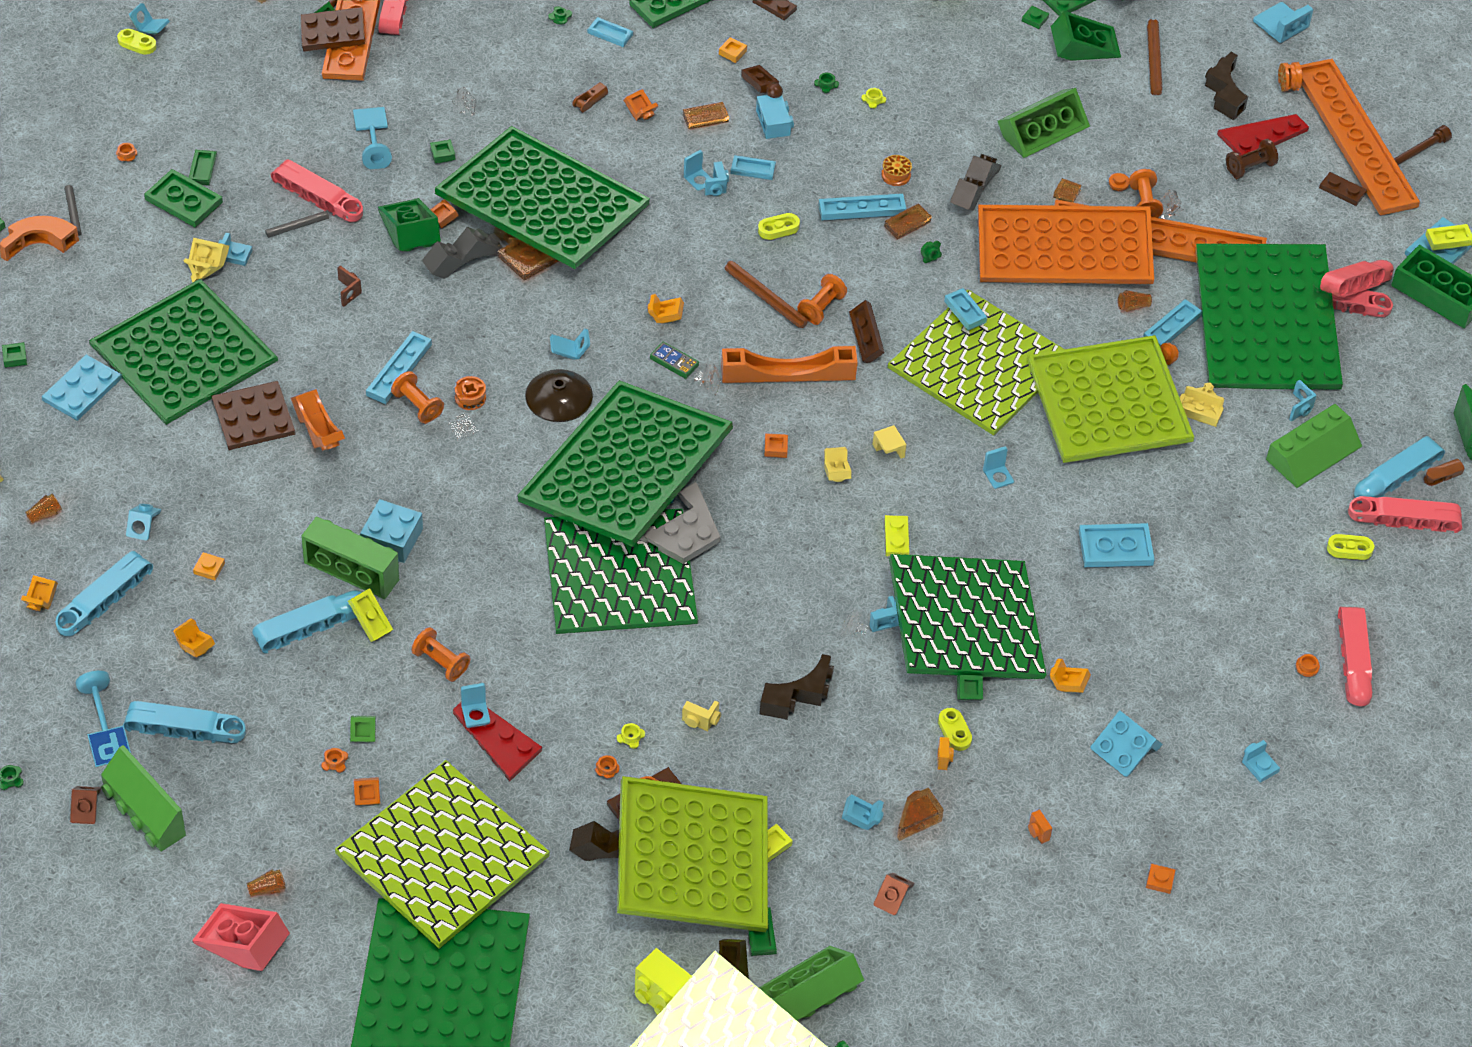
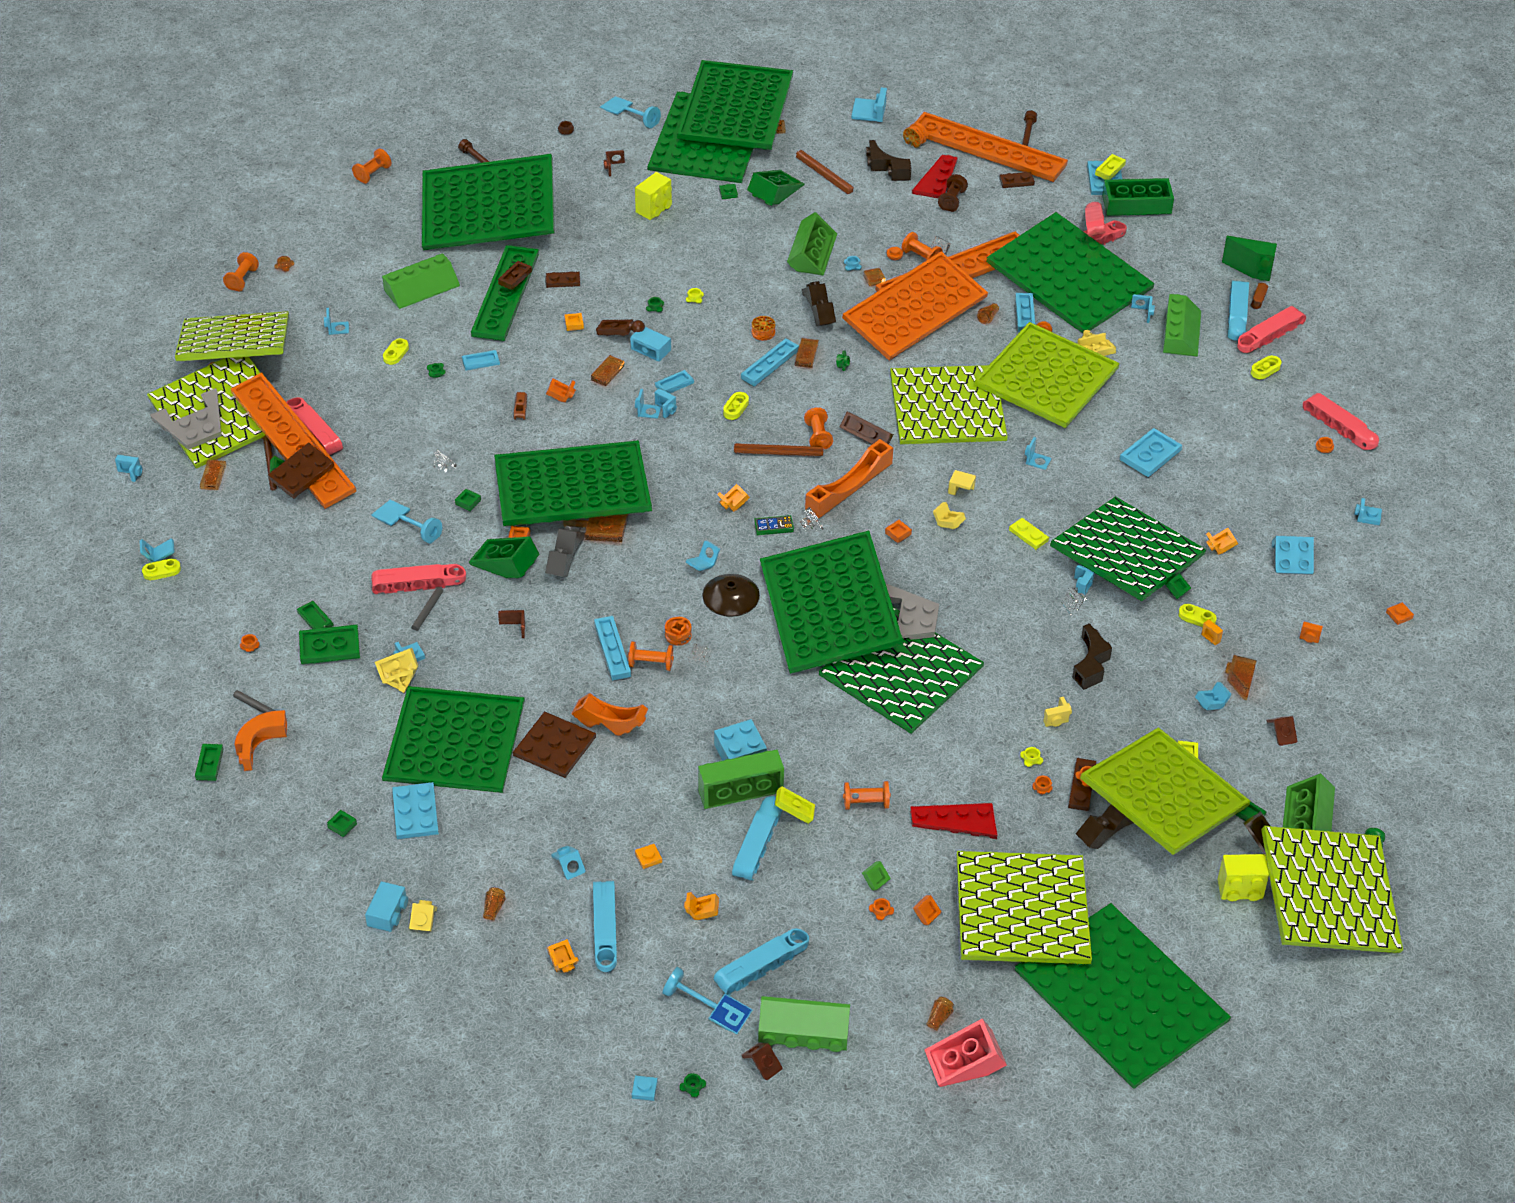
camera: 40 degrees left, 5 degrees down
(474, 698) = (925, 805): medium azure bracket -> none
(965, 309) = (907, 378): medium azure plate -> none
(1064, 164) = (852, 263): none -> medium azure plate

